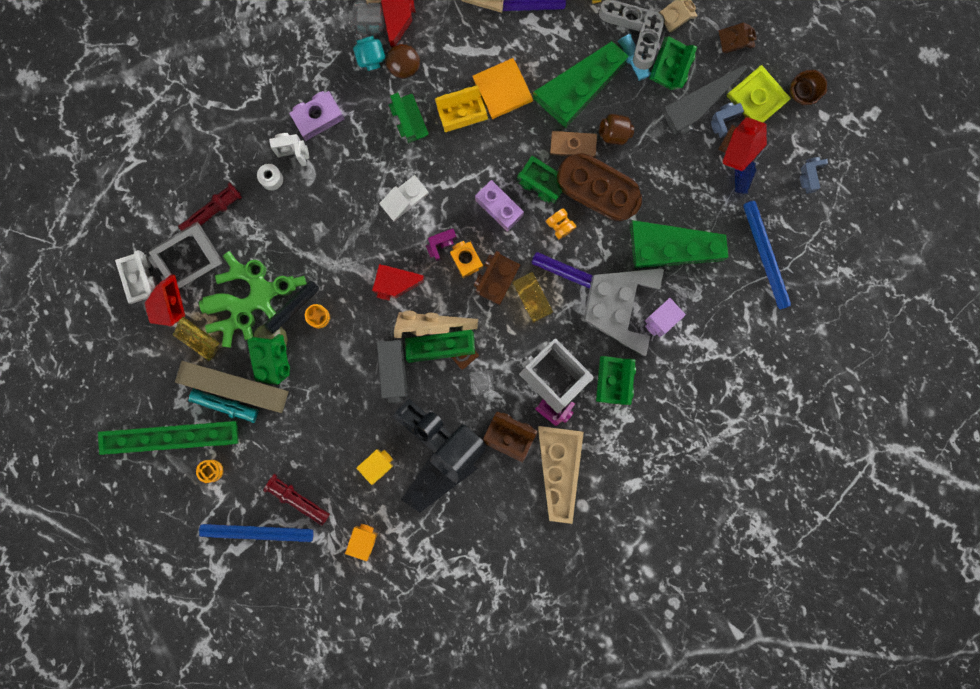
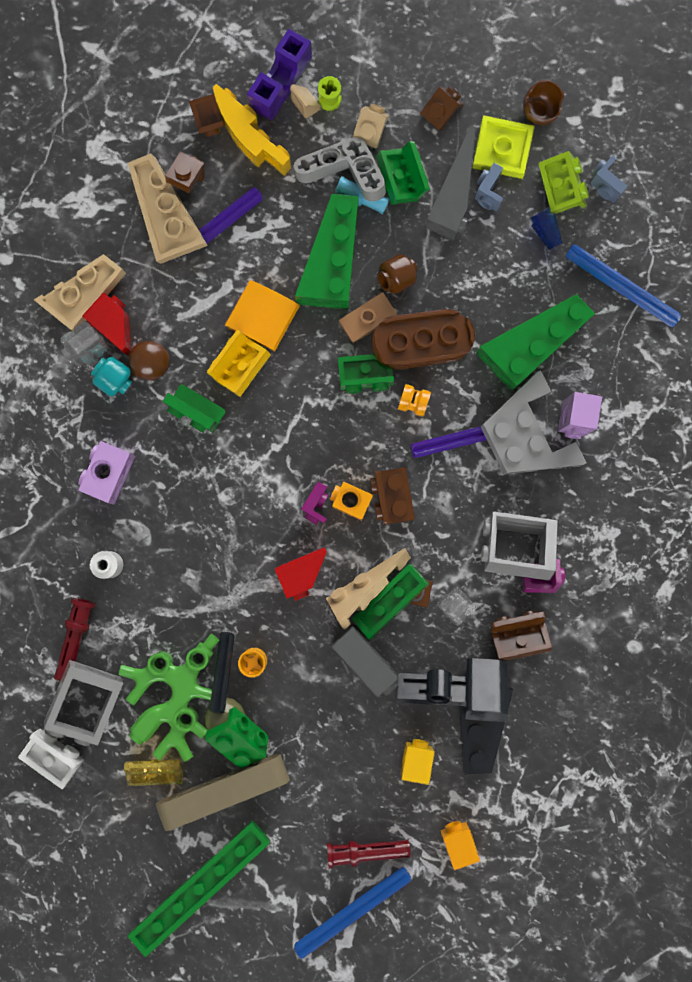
camera: 40 degrees left, 0 degrees up
(165, 303) = (98, 764): red slope -> none
(213, 472) = (263, 883): light orange wheel -> none
(223, 405) = (258, 804): teal pin -> none
(287, 145) = (98, 523): white bracket -> none
(403, 198) = (248, 487): white slope -> none
(499, 205) = (344, 427): lavender brick -> none
(532, 297) = (440, 489): clear yellow plate -> none
(561, 465) = (590, 629): tan wing -> none
(615, 380) = (578, 507): green bracket -> none
(724, 145) = (507, 206): reddish brown tile -> none
(745, 143) = (528, 196): red slope -> none
(780, 153) = (563, 182): none -> lime bracket

